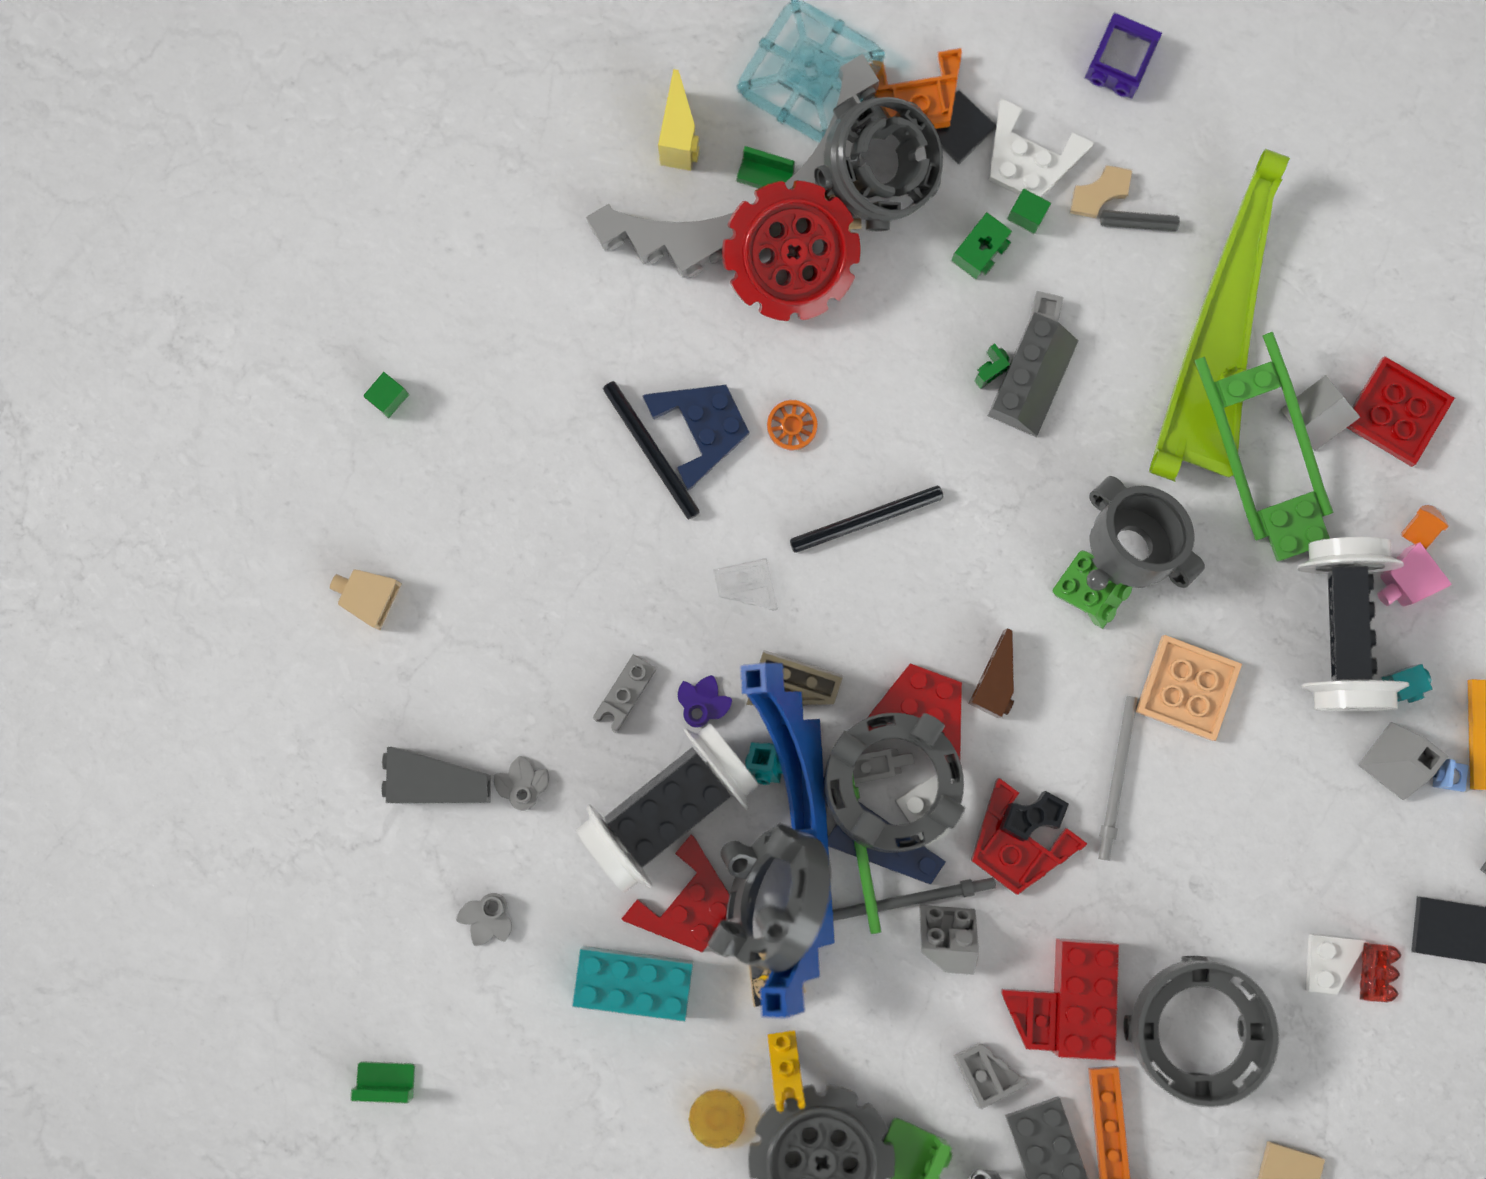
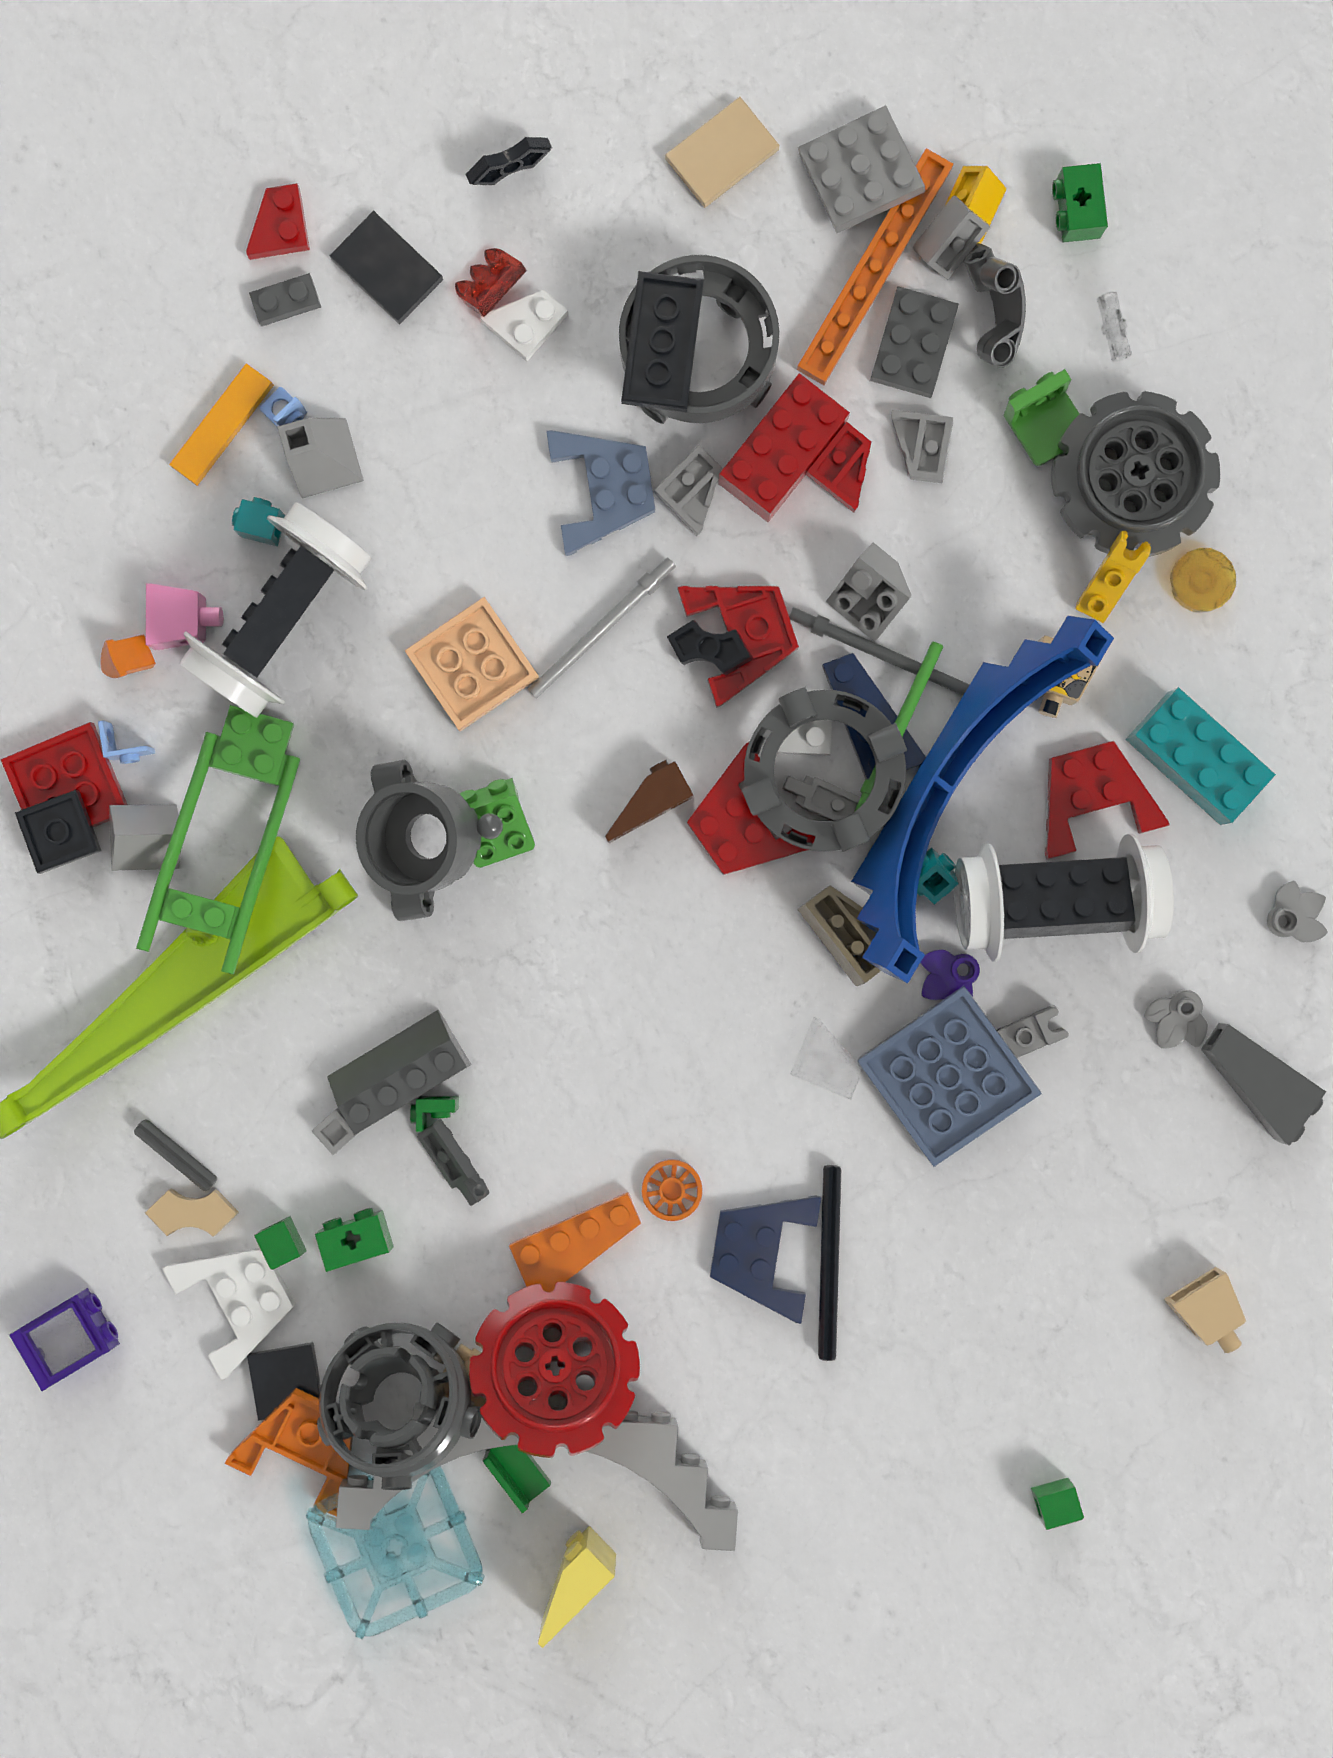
camera: 140 degrees left, 5 degrees up
(657, 631) = (949, 1076): none -> sand blue plate
(785, 931) = (1057, 706): dark grey piece -> none
(833, 344) = (572, 1244): none -> orange wing
(866, 519) = (665, 1044): black axle -> none
(953, 341) = (452, 1162): none -> dark grey hinge
(1128, 922) = (691, 488): none -> light grey wing
(1182, 889) = (616, 481): none -> sand blue wing
(1230, 1009) = (662, 341): none -> black tile
(1380, 376) = (58, 831): none -> black tile
(1385, 455) = (109, 749): none -> light blue bracket
(1437, 1059) = (495, 167): none -> black tile

